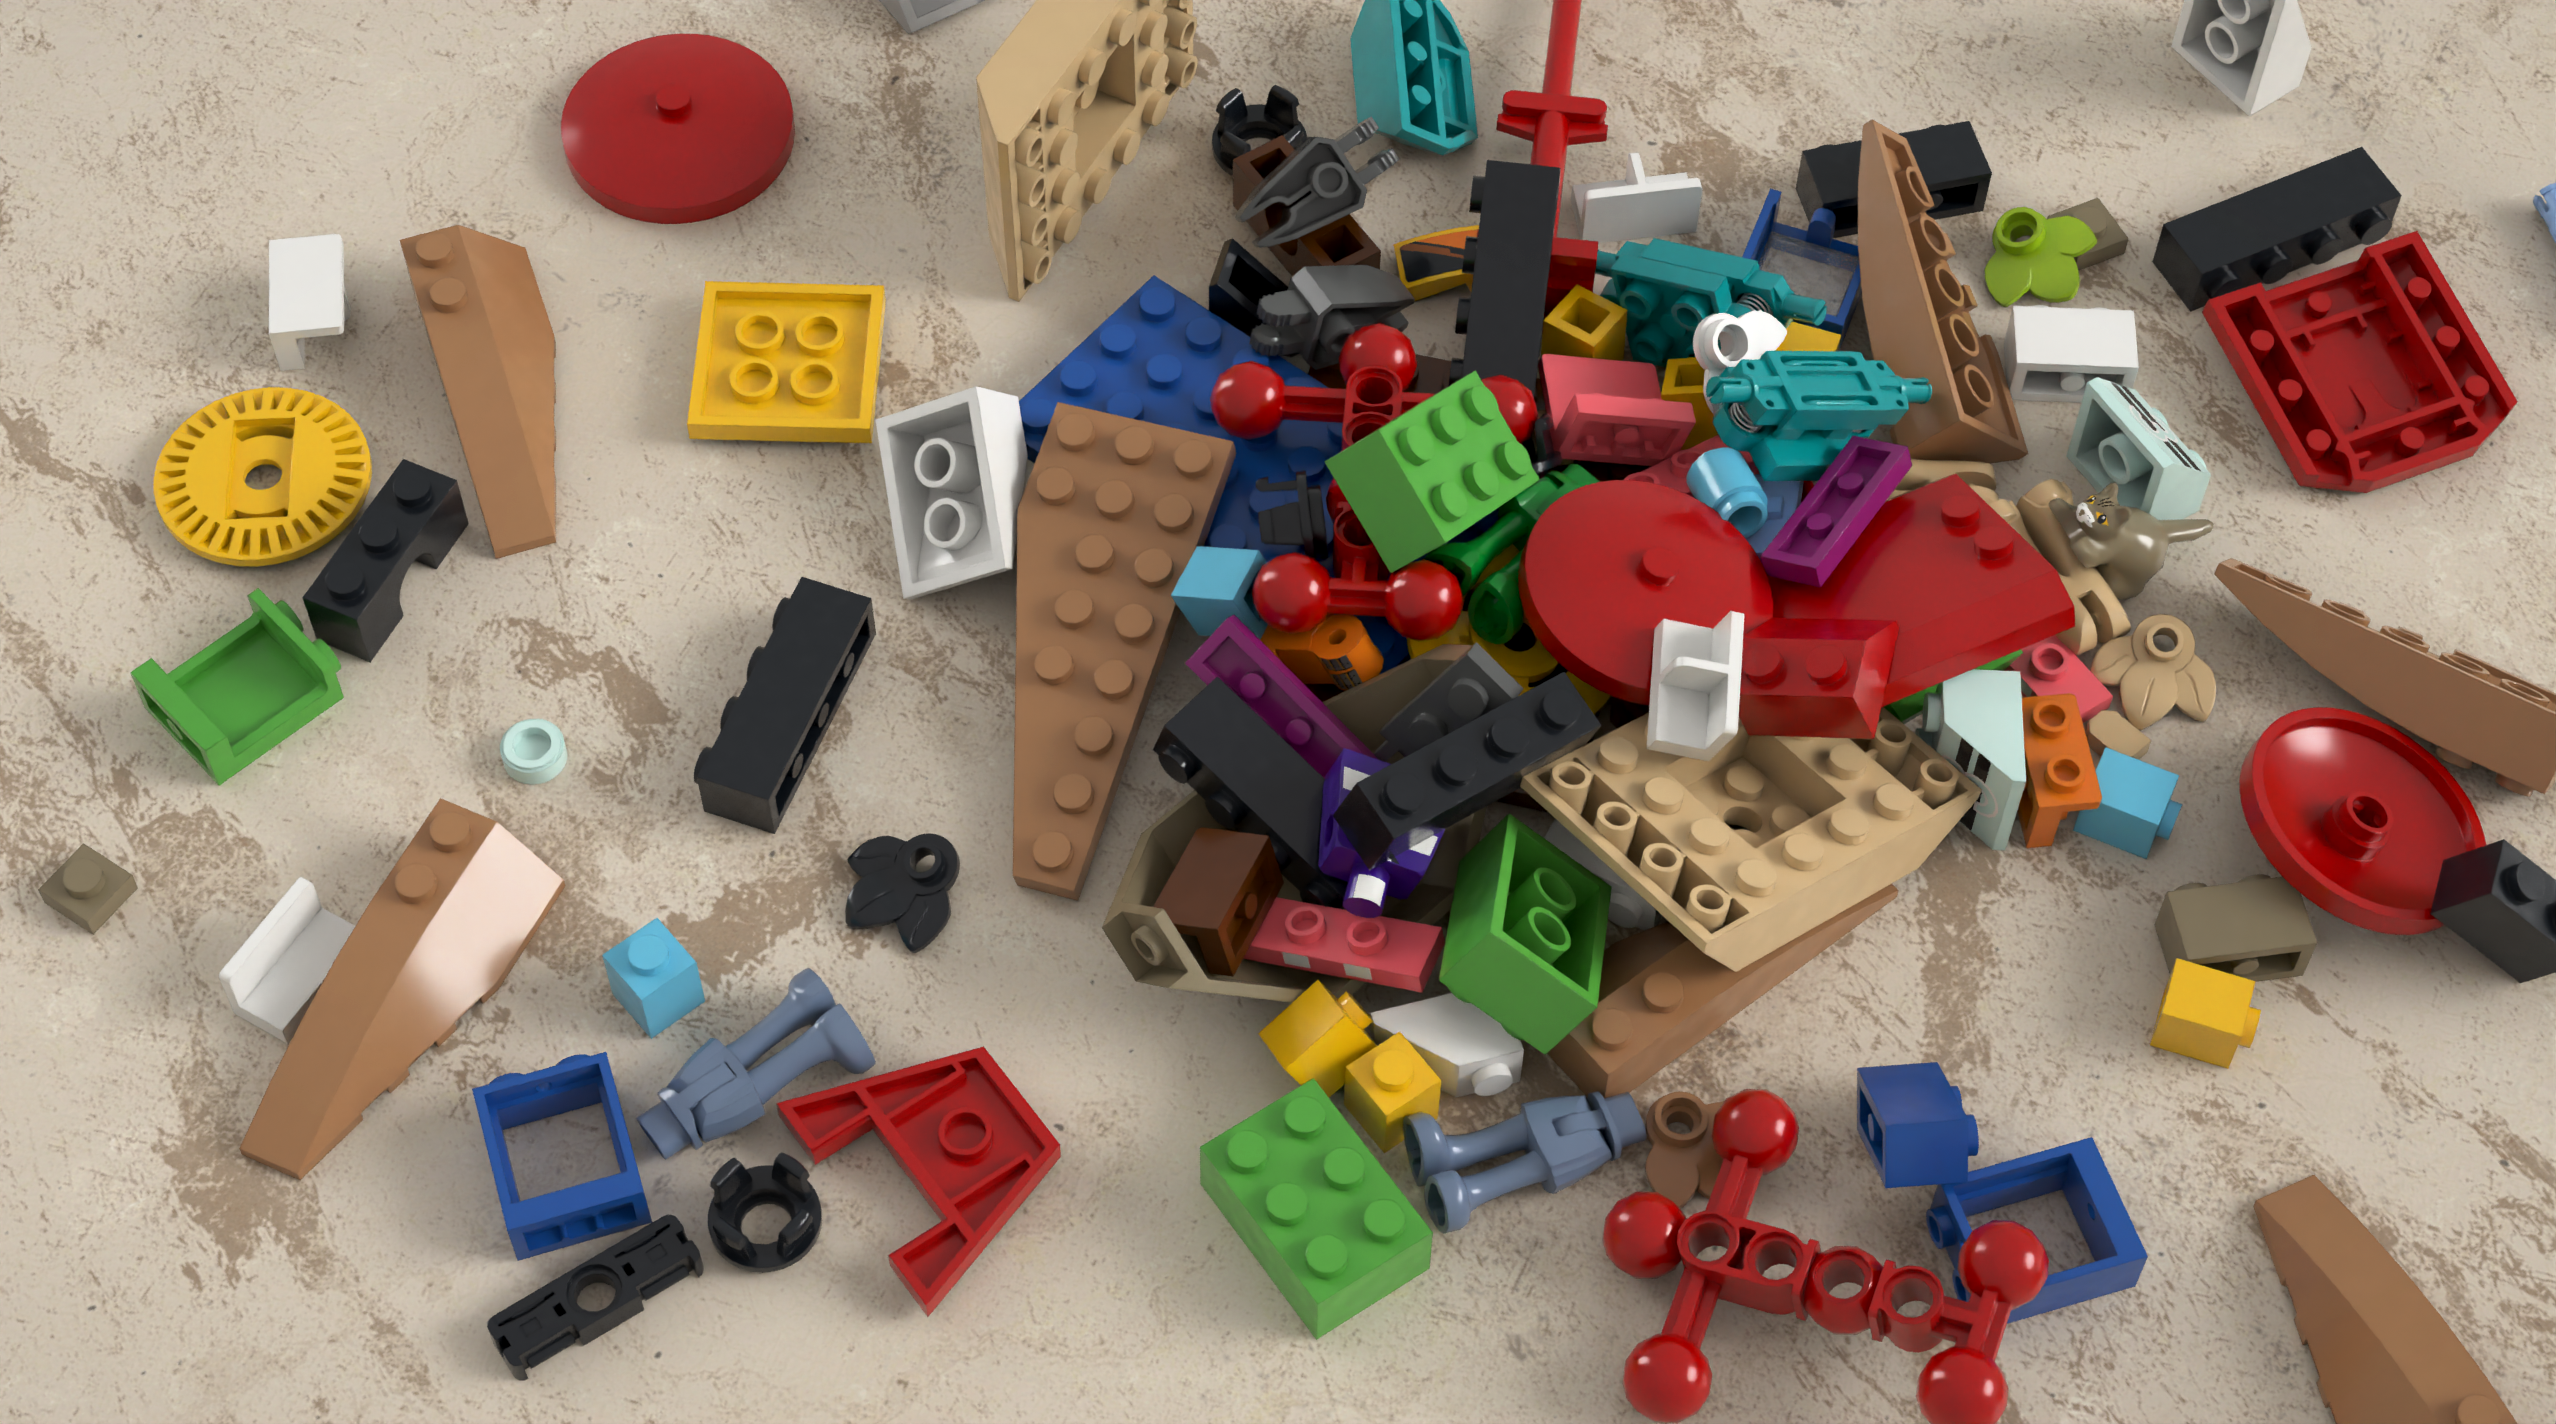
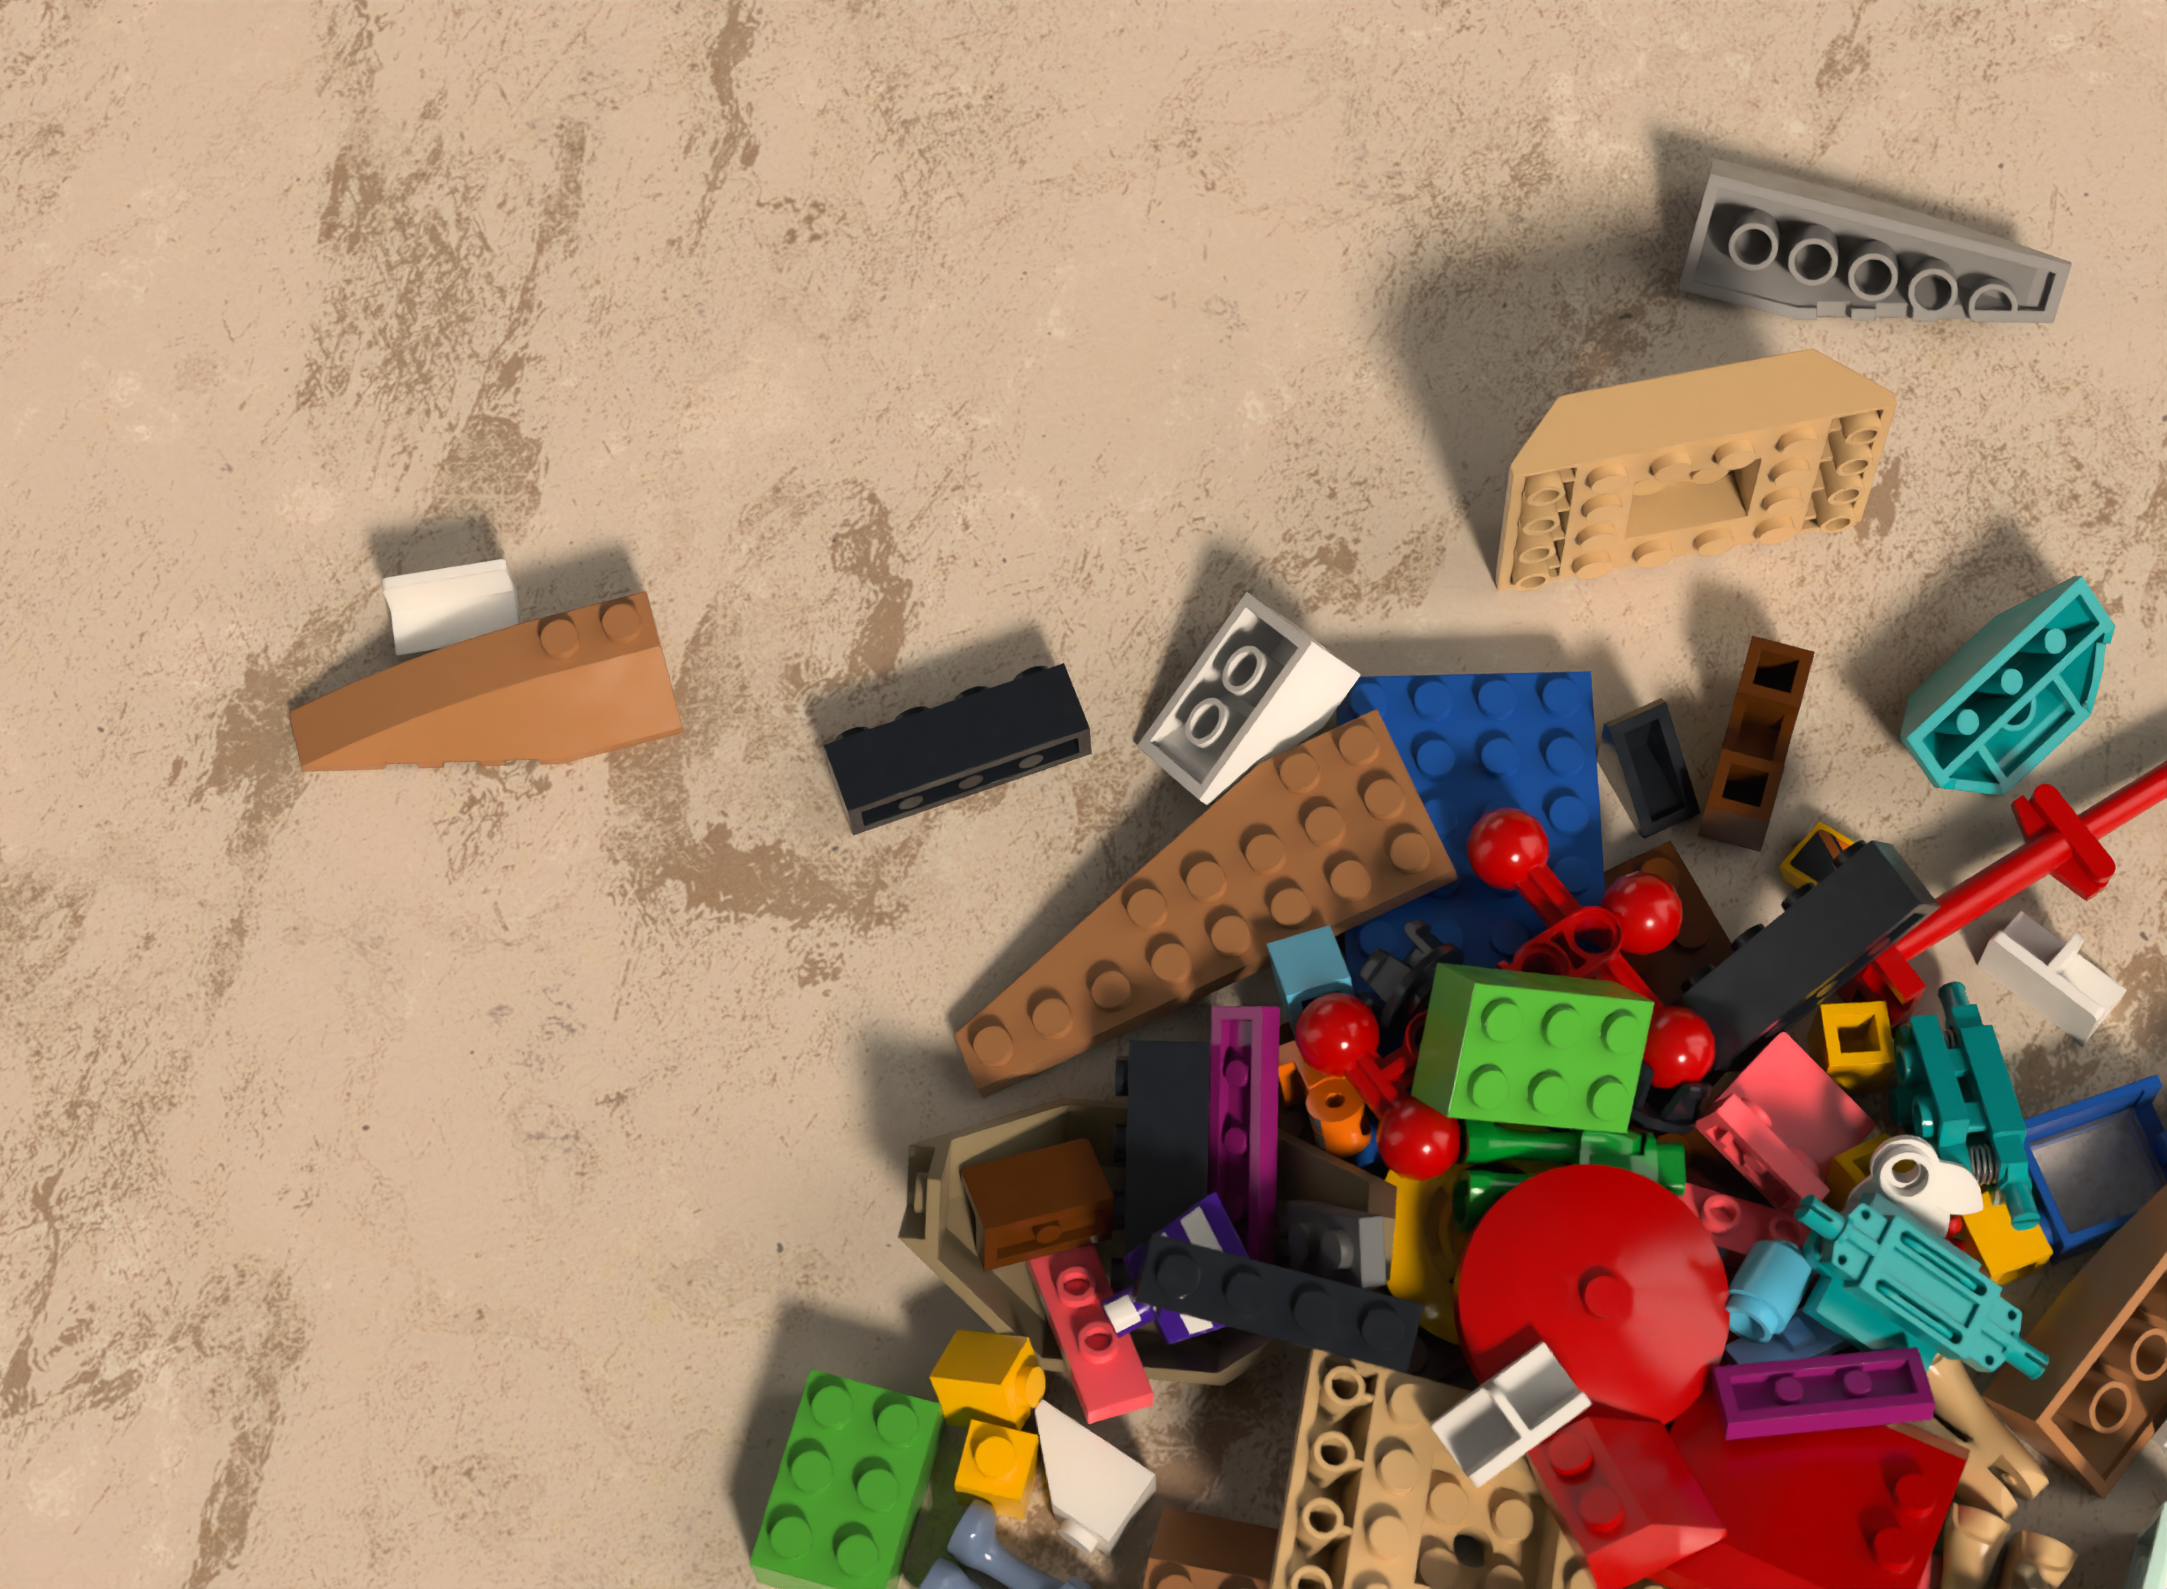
camera: 55 degrees right, 10 degrees up
(88, 888) = (403, 428): dark tan plate -> none
(206, 463) = (850, 272): yellow piece -> none
(243, 689) = (641, 376): bright green panel -> none
(305, 294) = (1003, 105): white panel -> none
(358, 591) = (792, 371): black arch -> none
(496, 374) = (1070, 280): medium nougat wedge -> none
(533, 751) = (770, 611): light aqua tile -> none
(552, 1318) = (411, 1055): black piece -> none
(576, 1211) = (376, 941): blue window -> none
(654, 978) = (642, 862): medium azure brick -> none
(678, 128) = (1419, 209): red dish -> none
(719, 1096) = (592, 990): sand blue piece -> none
(741, 1190) = (516, 1072): black piece -> none
(787, 362) = (1268, 479): yellow plate -> none
(897, 893) = (870, 962): black plate -> none
(957, 1137) = (695, 1192): red wing -> none
(1242, 122) = (1828, 602): black piece -> none
(1316, 185) = (1772, 721): dark grey hinge -> none
(1326, 308) = (1675, 836): dark grey hinge -> none
(1526, 935) = (1192, 1463): bright green brick -> none

